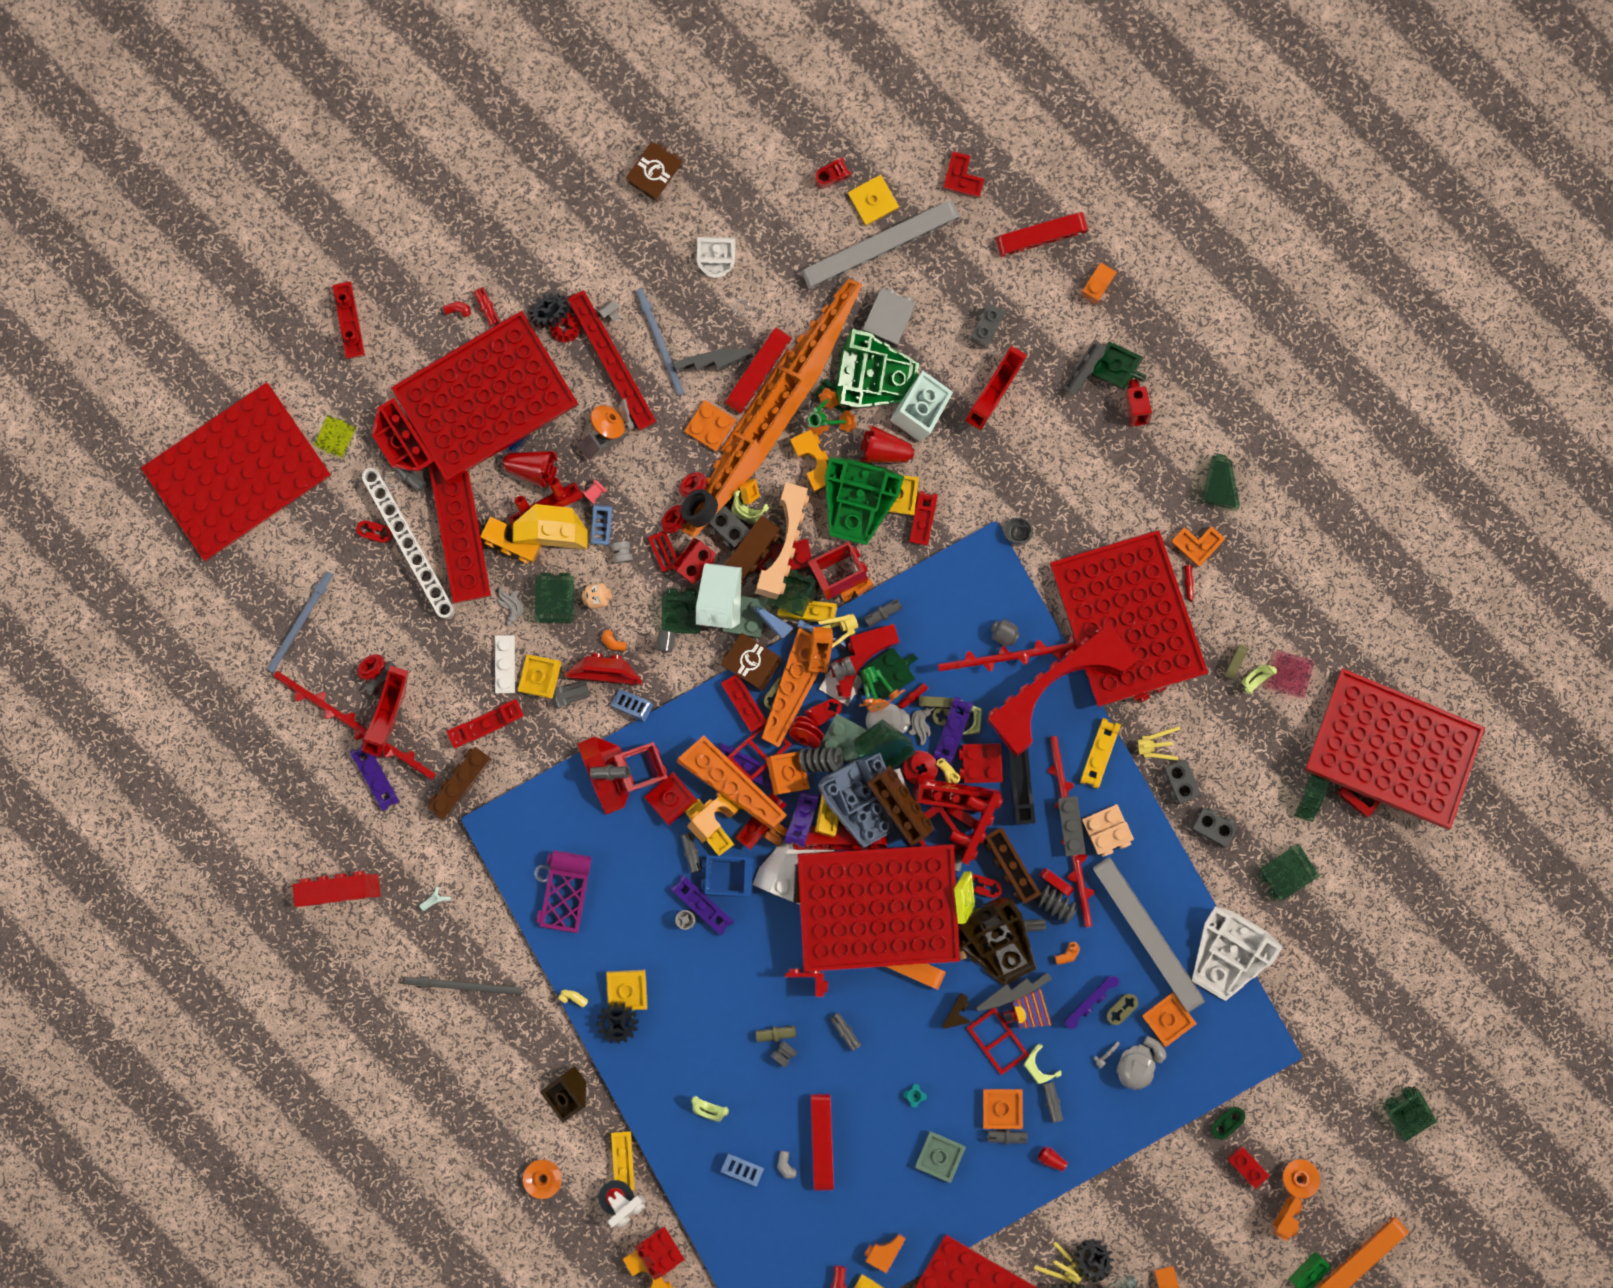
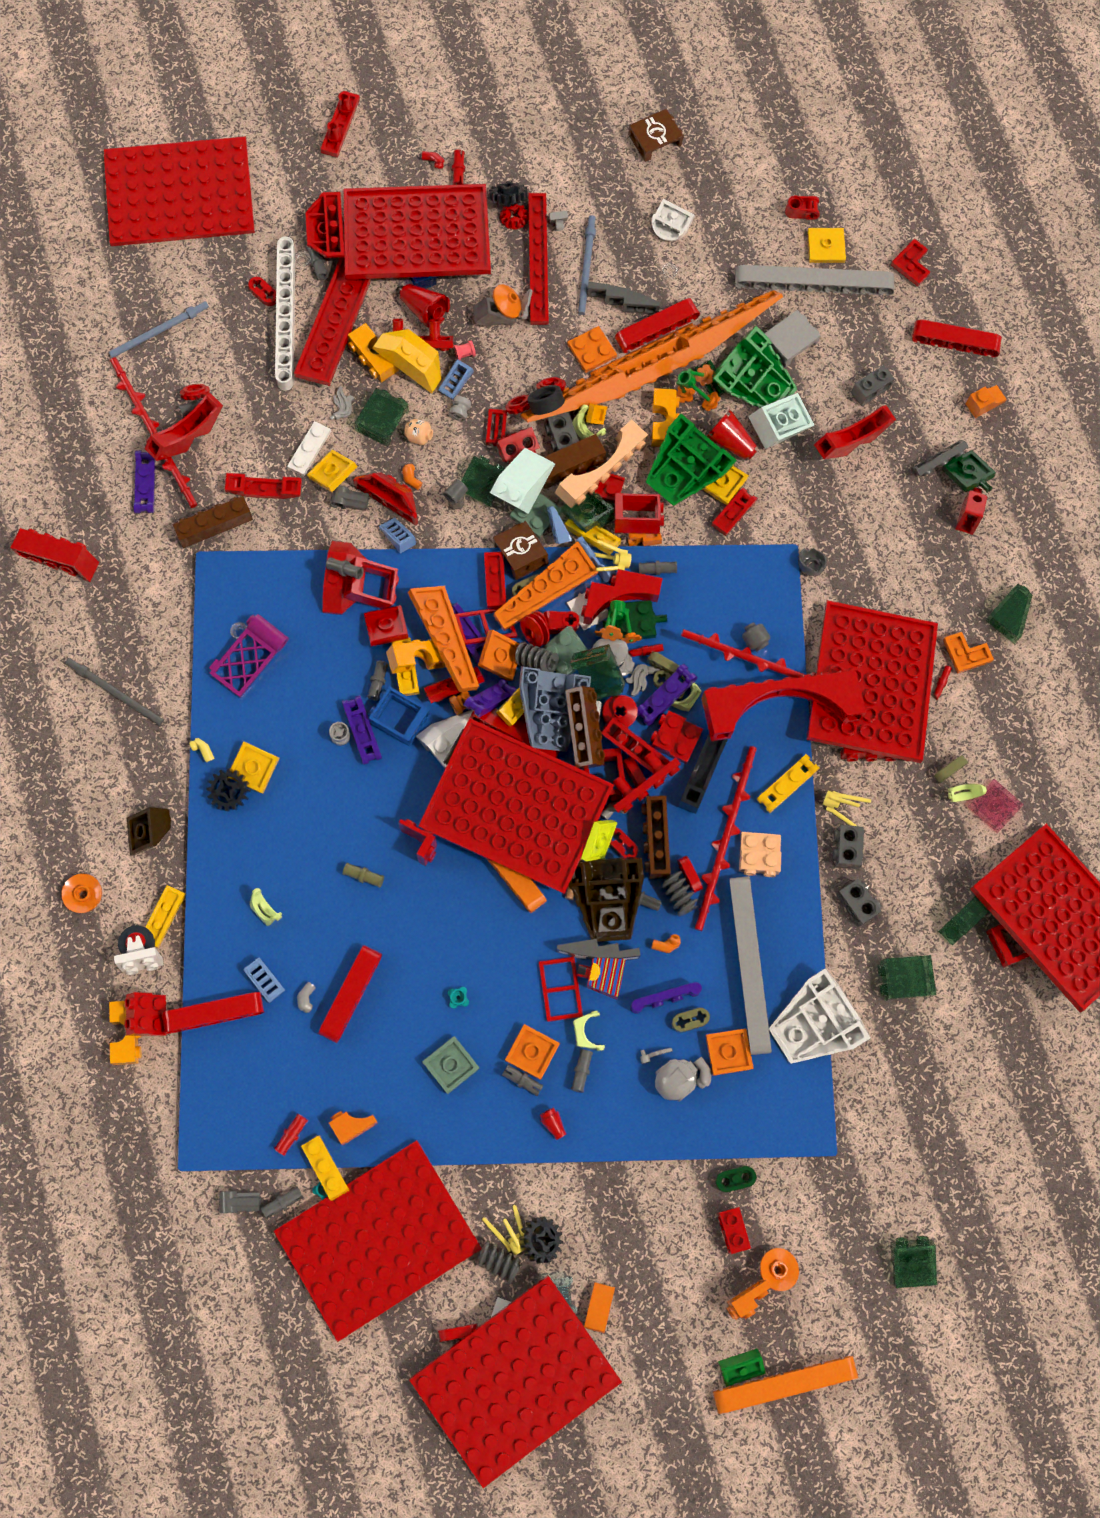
camera: 20 degrees right, 10 degrees down
(335, 436) = (275, 205): clear neon green piece -> none
(435, 898) = (132, 607): light aqua bar -> none
(715, 1221) = (212, 1012): none -> red beam
(787, 1050) = (364, 893): dark grey wheel -> none
(820, 649) = (585, 566): orange arch -> none
(843, 668) = (597, 589): flat silver wheel -> none
(845, 1032) = (427, 906): dark grey pin -> none
(949, 773) = (643, 727): light yellow arm -> none
(954, 1018) = (532, 945): dark brown slope -> none
(1071, 826) = (729, 831): dark grey plate -> none

